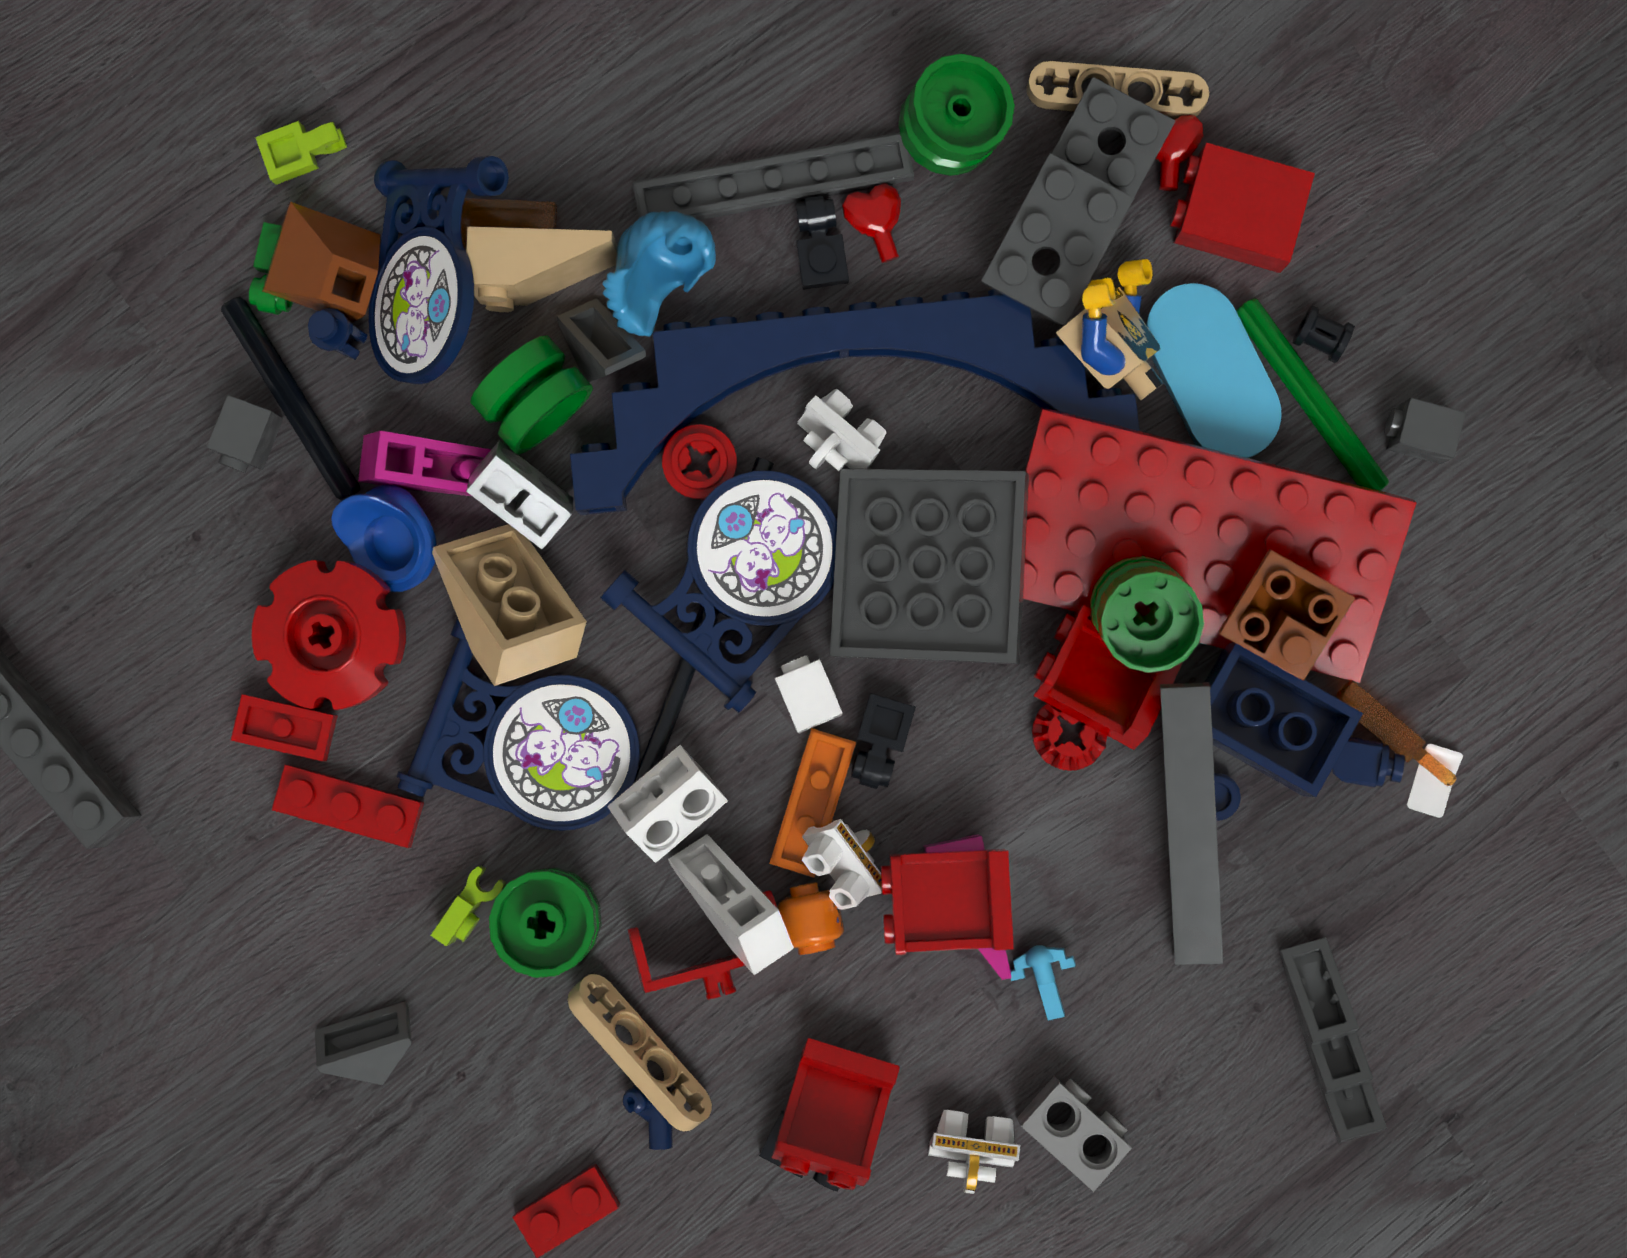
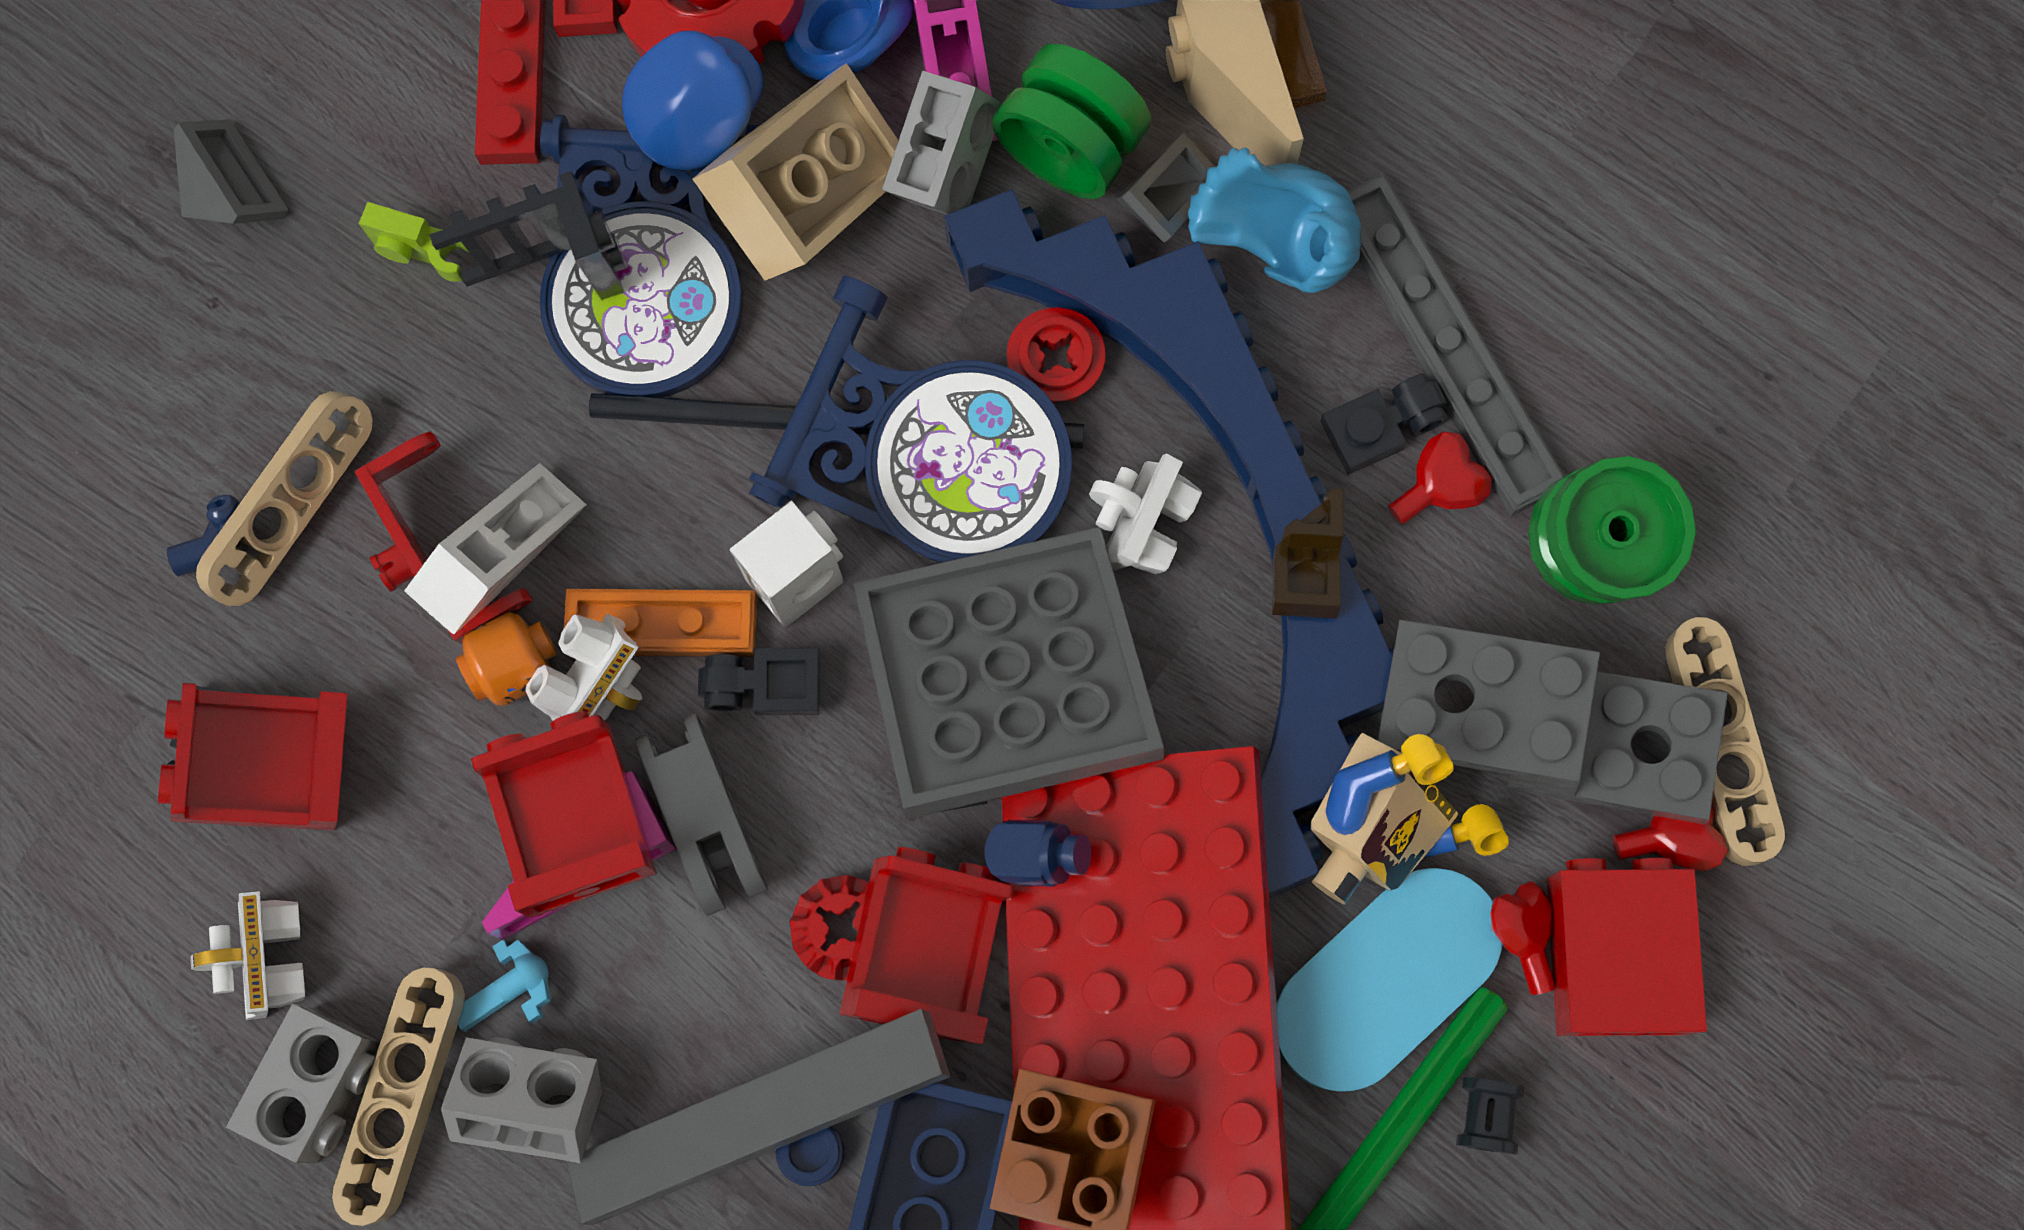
camera: 75 degrees right, 10 degrees down
(425, 670) = (690, 98): none -> blue piece
(517, 926) = (419, 334): green wheel -> none
(521, 772) = (566, 220): none -> black plate
(566, 1210) = (70, 472): red plate -> none
(667, 804) = (605, 436): white brick -> none
(920, 330) = (1309, 562): none -> dark brown slope
(965, 808) = (701, 815): none -> dark grey piece
(1068, 581) = (1036, 852): none -> dark blue arm
(1096, 1072) = (388, 1090): none -> tan beam
(1140, 987) = (517, 1114): none -> light grey brick
(1165, 633) = (982, 966): green wheel -> none
(1207, 270) = (1524, 927): none -> red rock

